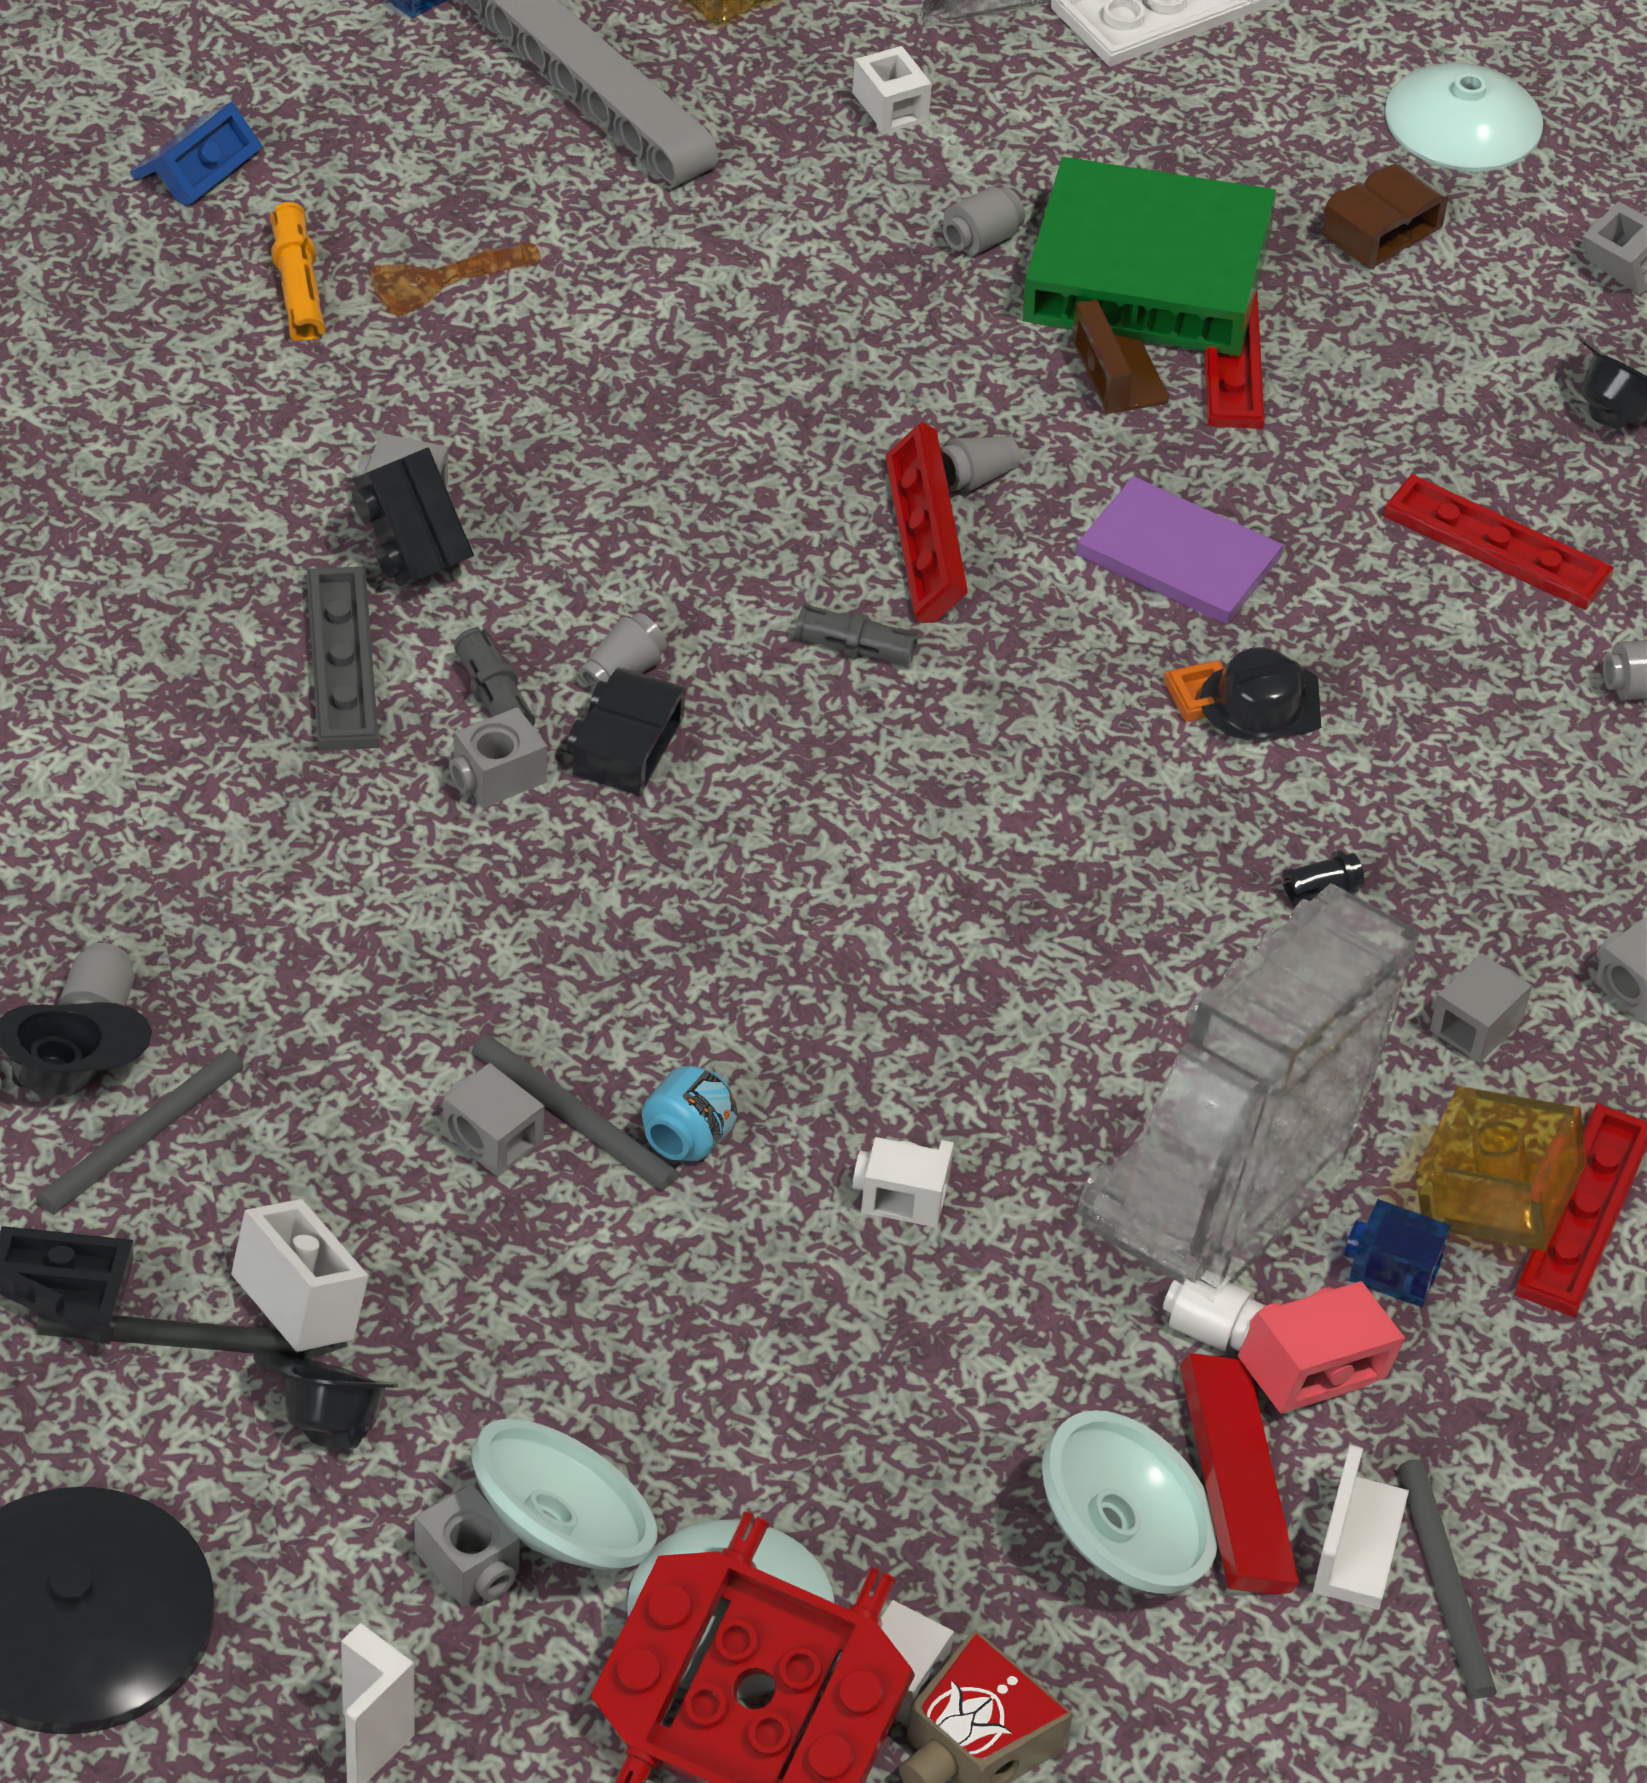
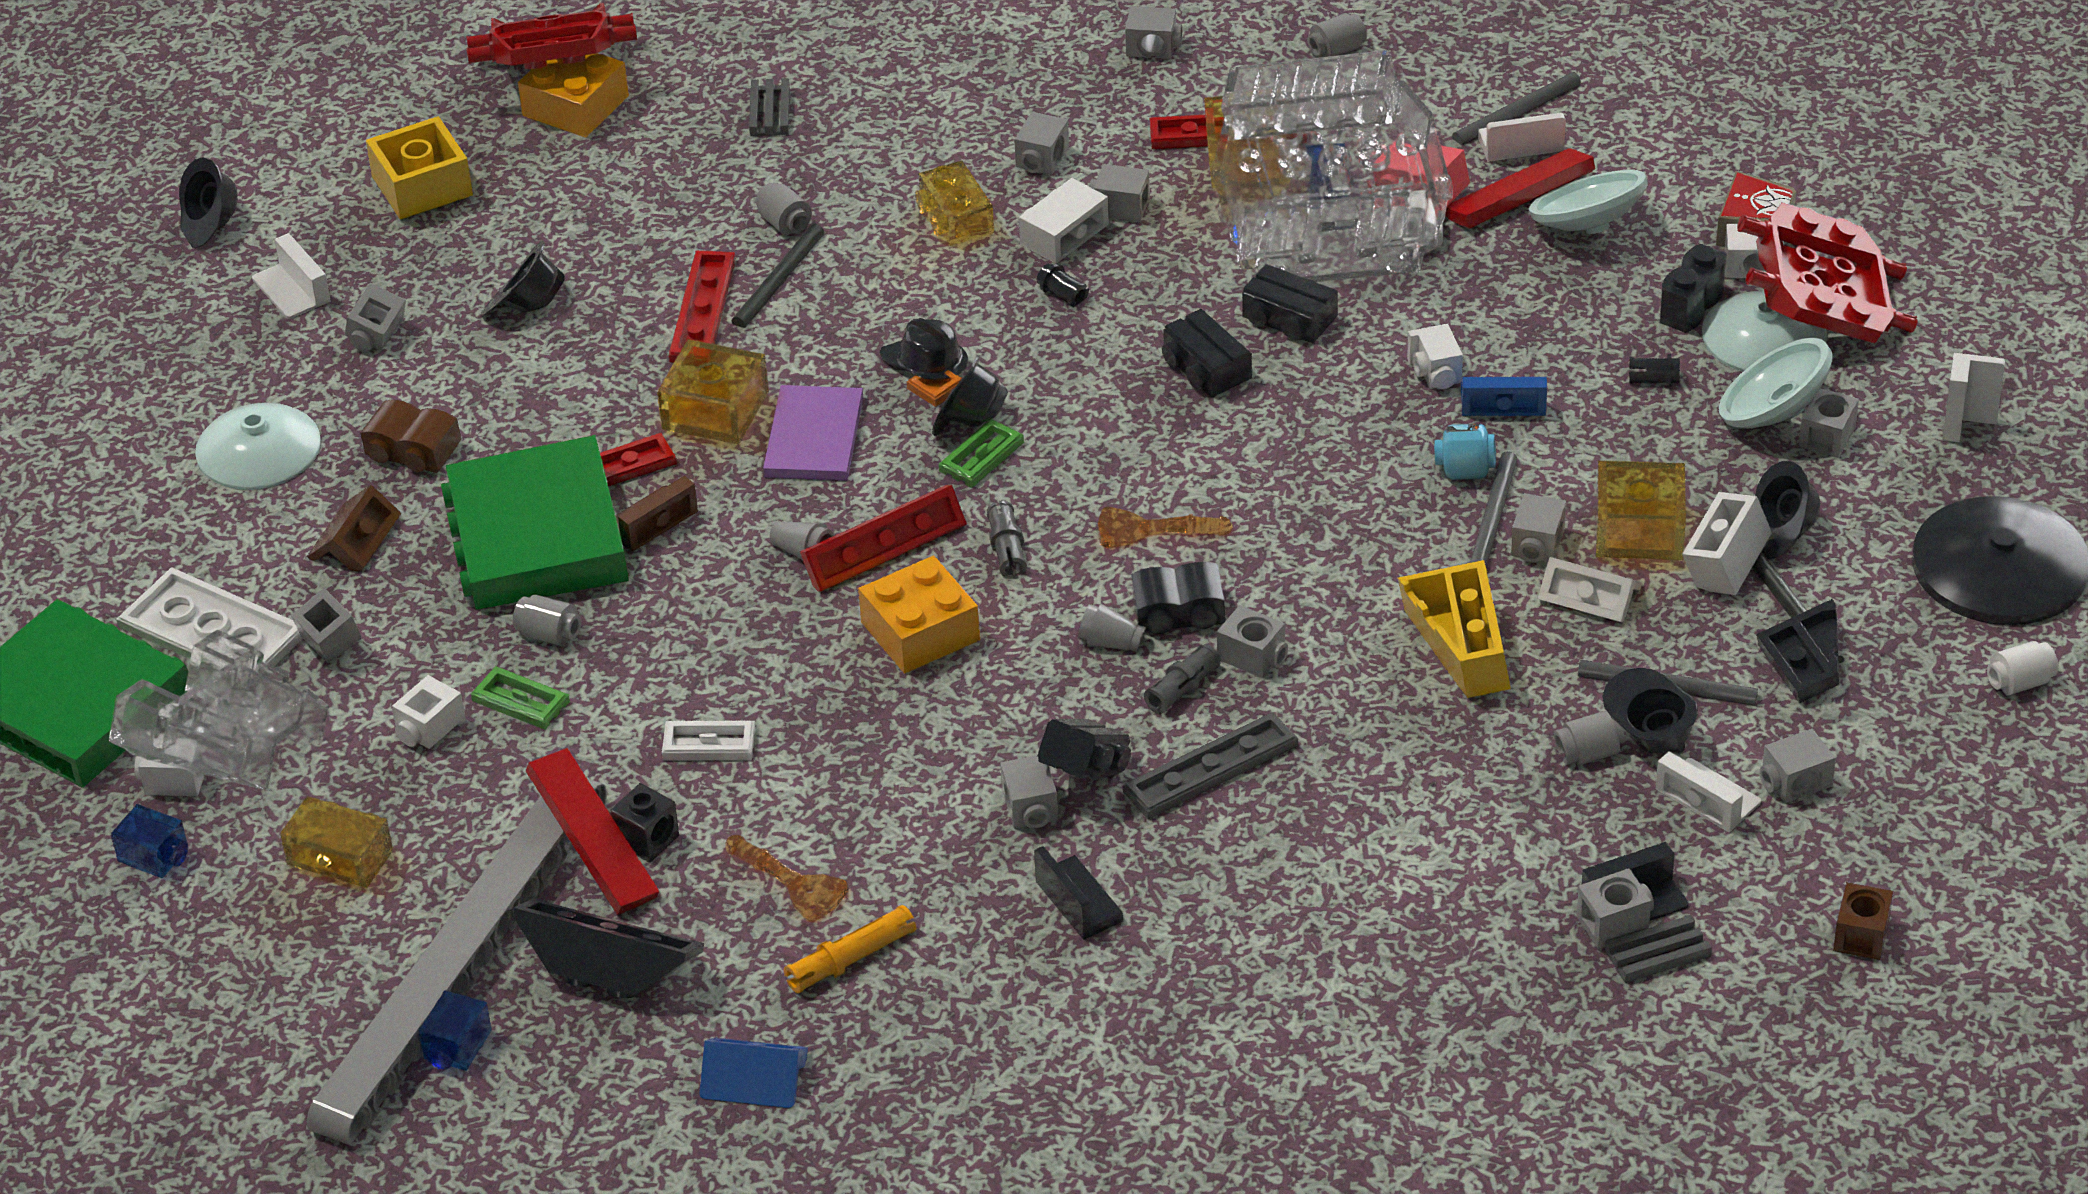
camera: 110 degrees left, 5 degrees down
(228, 454) = (1076, 894): none -> black panel
(358, 947) = (1459, 624): none -> yellow wedge
(363, 1134) = (1587, 589): none -> white panel
(435, 1222) = (1640, 510): none -> clear yellow brick
(438, 95) = (600, 949): none -> black wedge
(592, 179) = (647, 821): none -> black brick
(599, 125) = (592, 831): none -> red tile
(686, 314) = (708, 745): none -> white tile
(726, 1419) = (1658, 370): none -> black pin
(761, 494) = (919, 614): none -> light orange brick
(792, 1228) = (1504, 396): none -> blue panel
(793, 774) = (1114, 534): none -> clear orange piece
(851, 1532) = (1693, 288): none -> black brick
(886, 182) = (515, 702): none -> bright green tile
(1039, 717) = (986, 456): none -> bright green tile
(1074, 950) = (1206, 353): none -> black brick
(1076, 47) = (326, 625): none -> light grey brick
(1116, 1079) = (1289, 303): none -> black brick
(1125, 684) = (973, 400): none -> black piece
(1243, 134) = (357, 529): none -> reddish brown panel
(1287, 460) = (713, 391): none -> clear yellow brick
(1454, 917) = (1063, 220): none -> white brick
(1522, 631) = (778, 276): none -> pearl dark grey bar
(1558, 832) = (954, 203): none -> clear yellow brick

